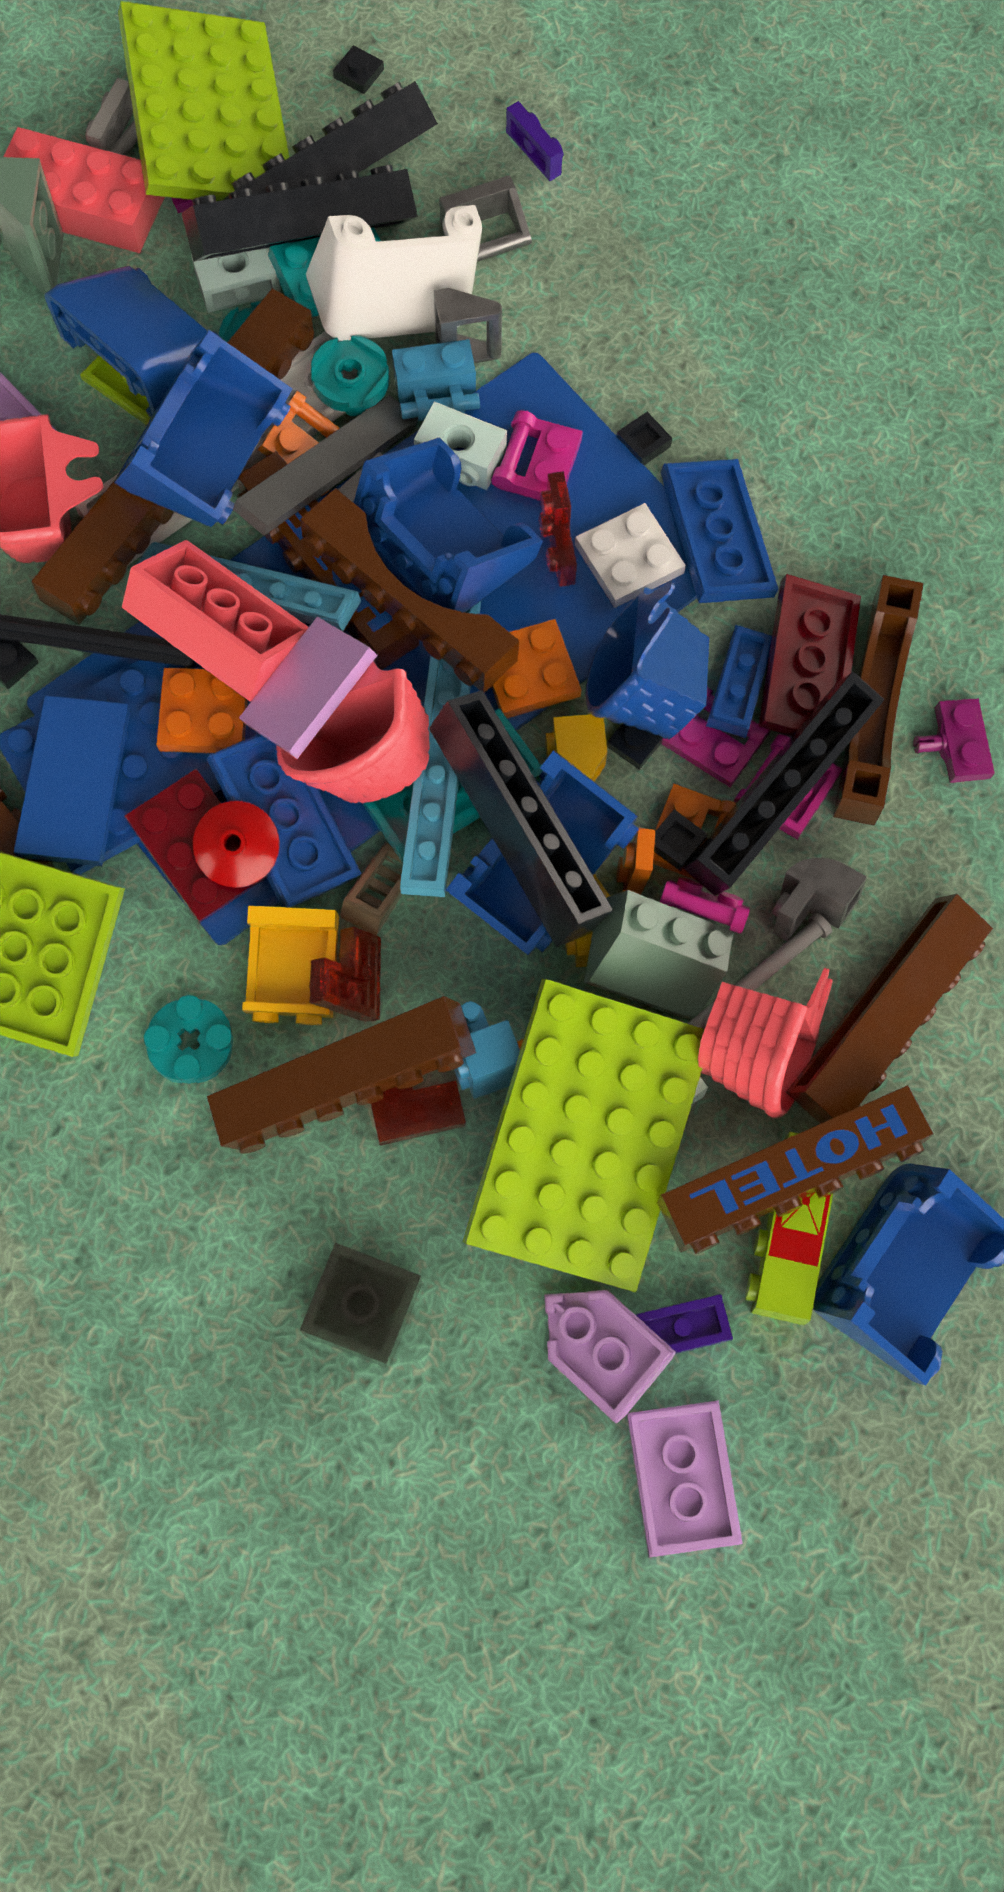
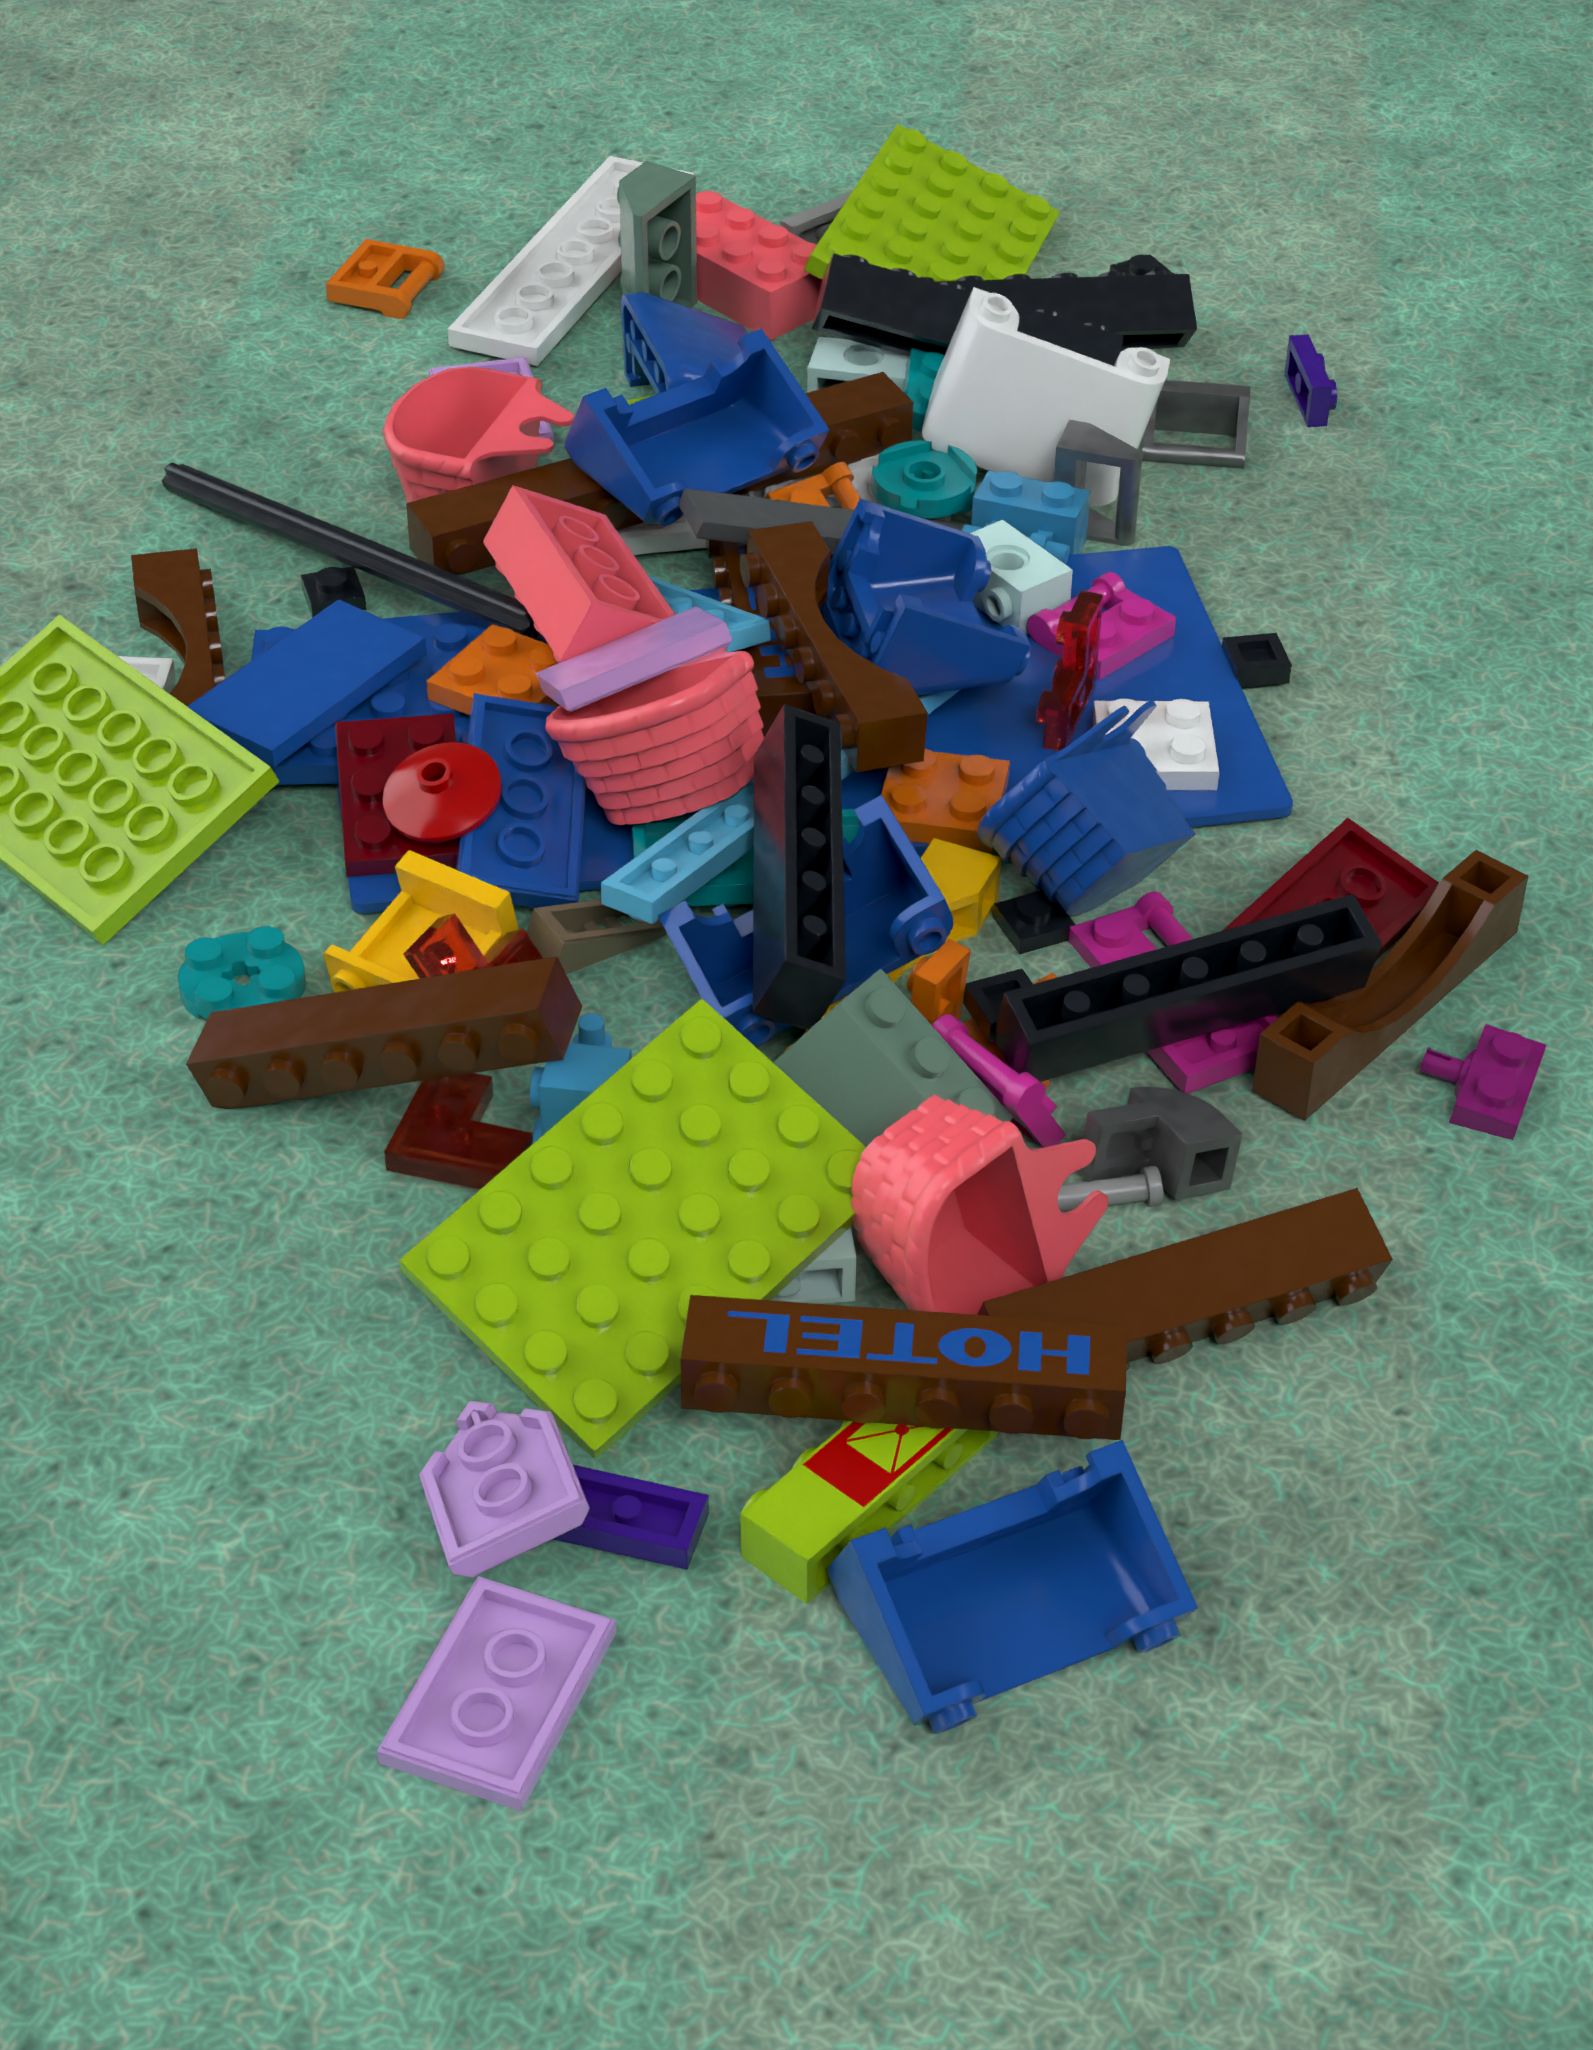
camera: 30 degrees right, 30 degrees down
(361, 1305) = (221, 1291): clear smoke brick -> none
(718, 531) = (1291, 765): blue tile -> none
(740, 681) = (1205, 905): blue tile -> none

